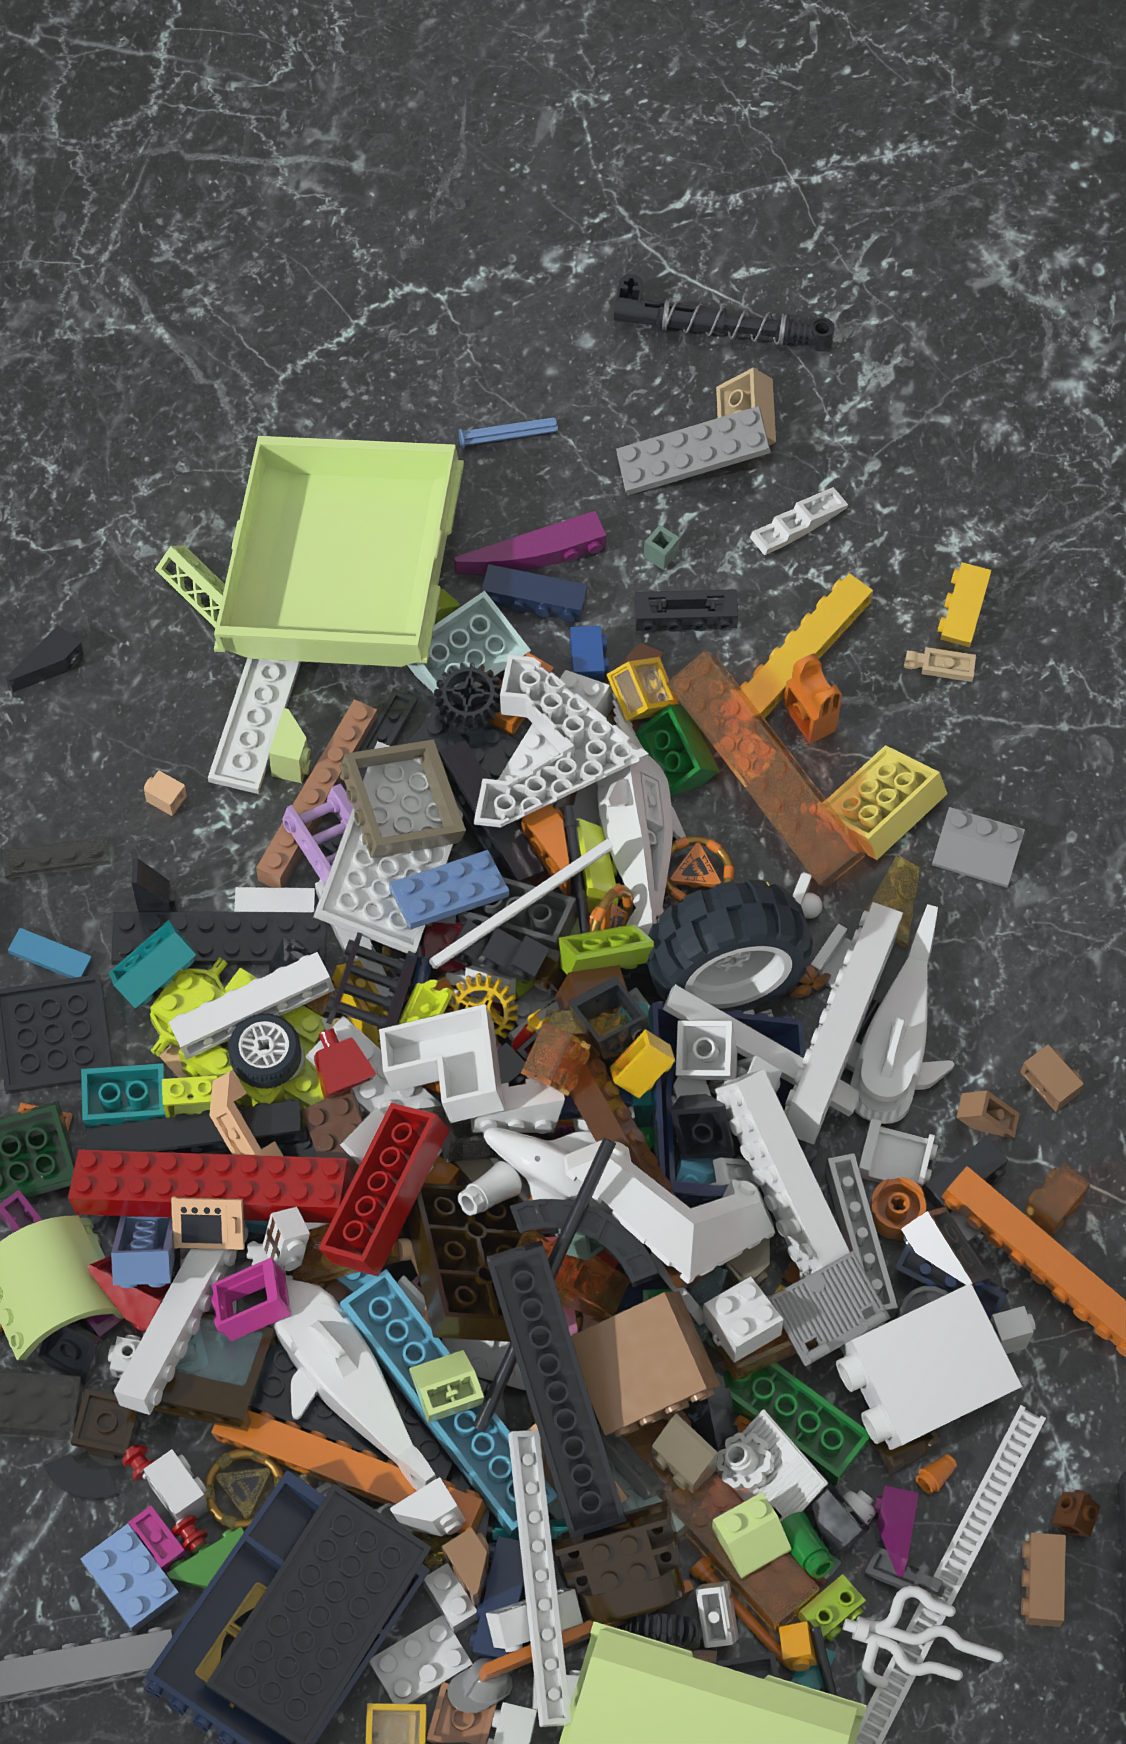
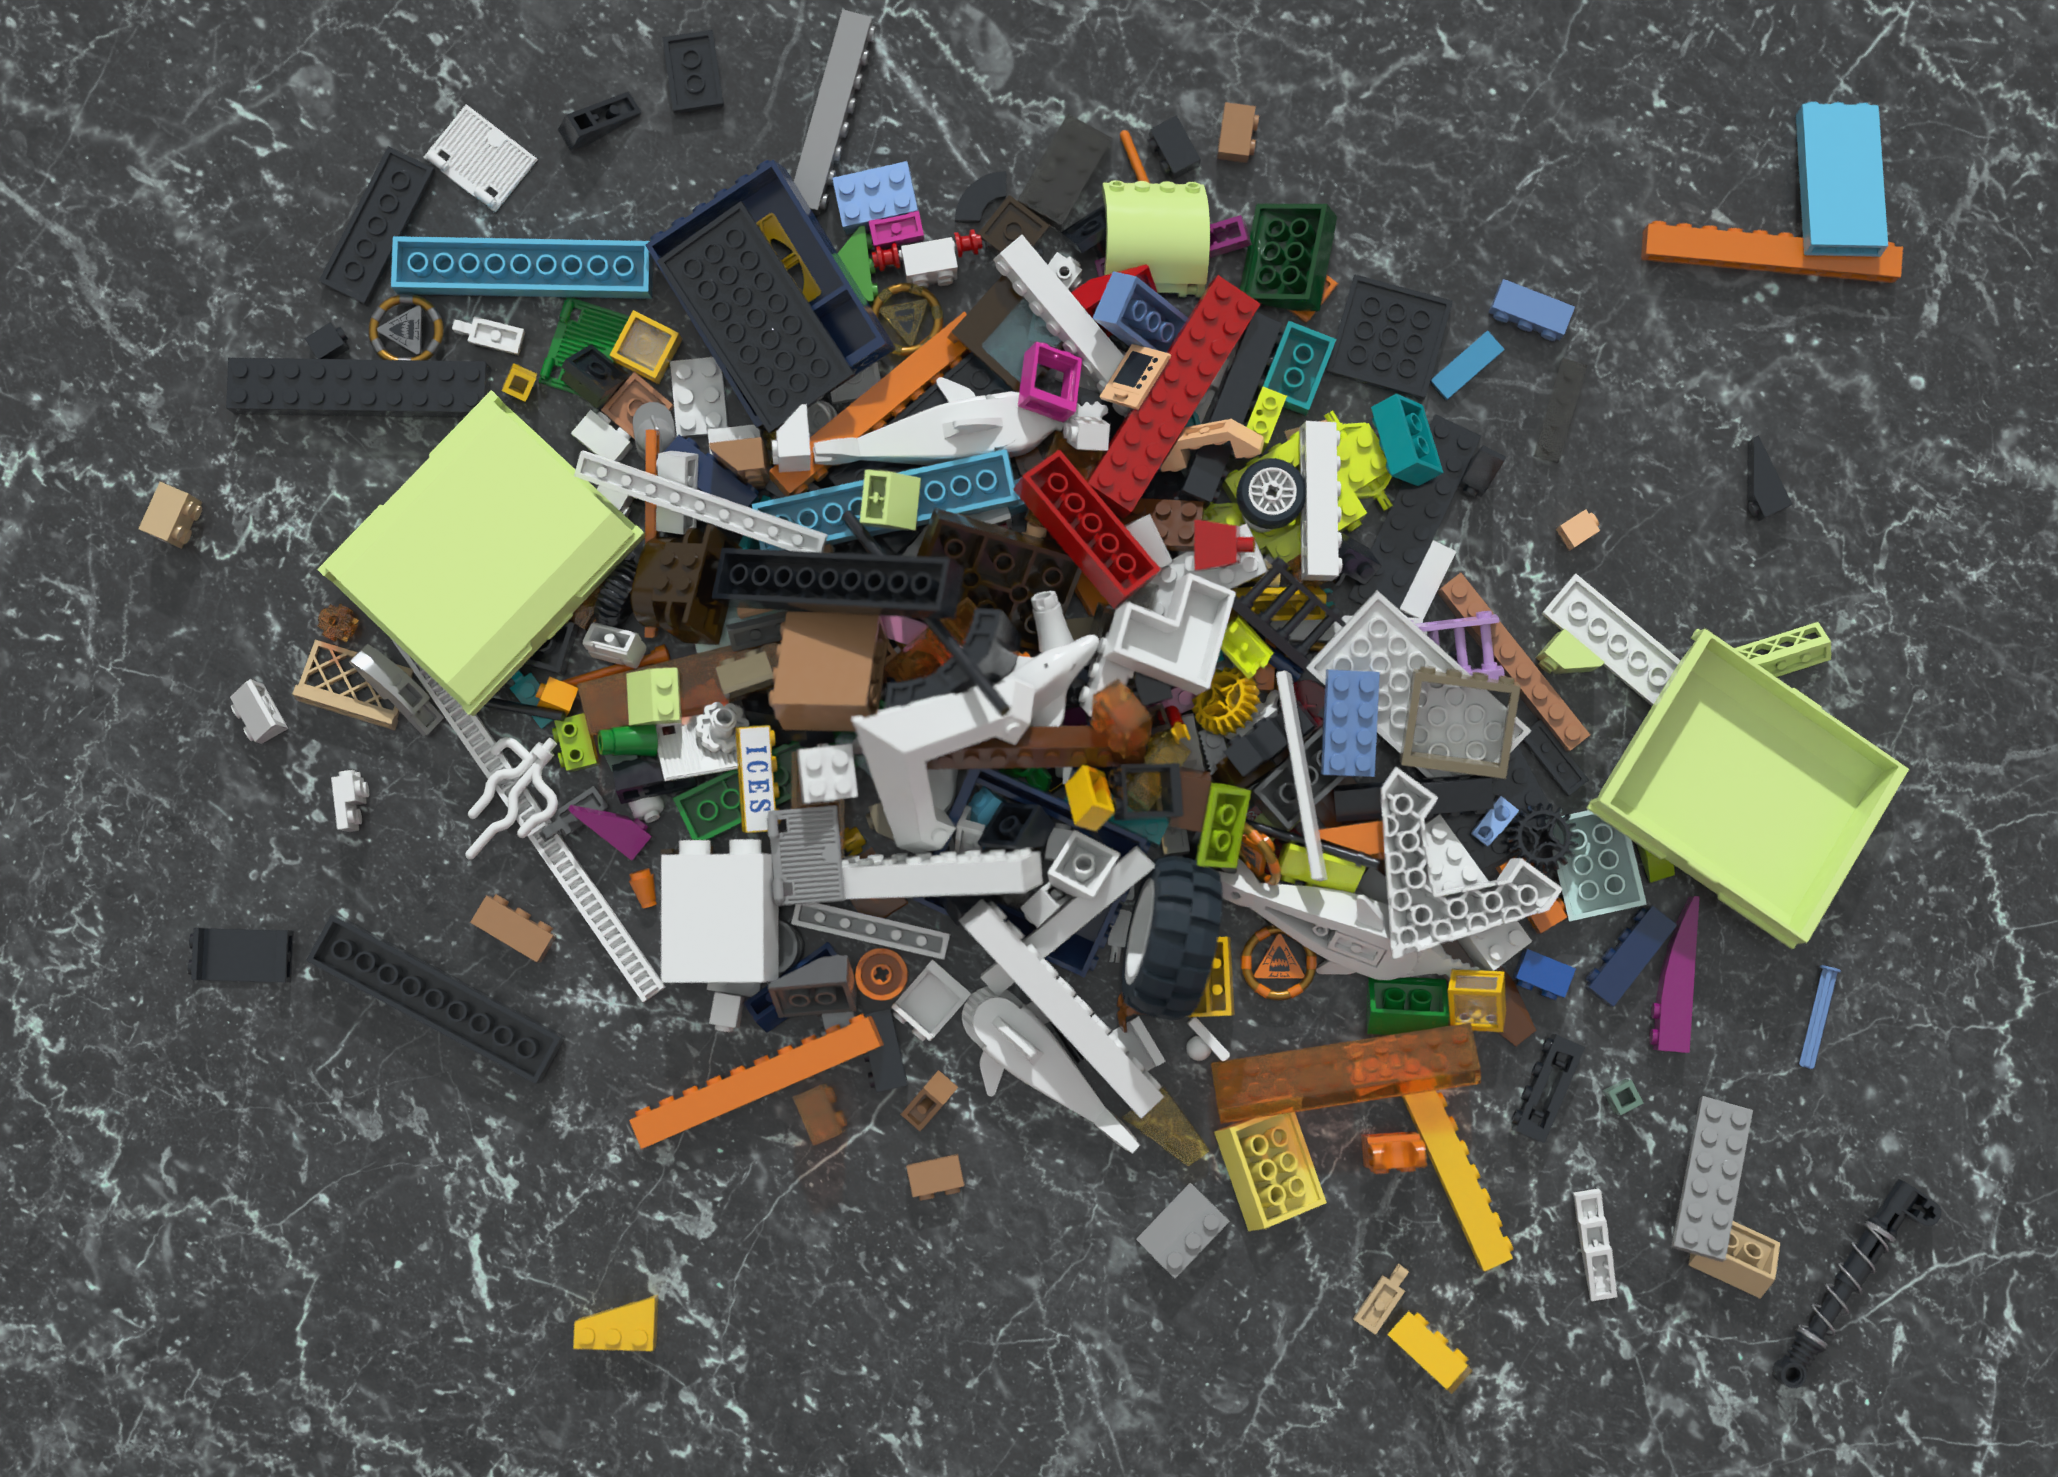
camera: 115 degrees right, 20 degrees up
(482, 743) = (1494, 821): none -> light blue leg
(778, 1399) = (756, 776): none -> brick
(1076, 1513) = (552, 983): reddish brown brick -> none

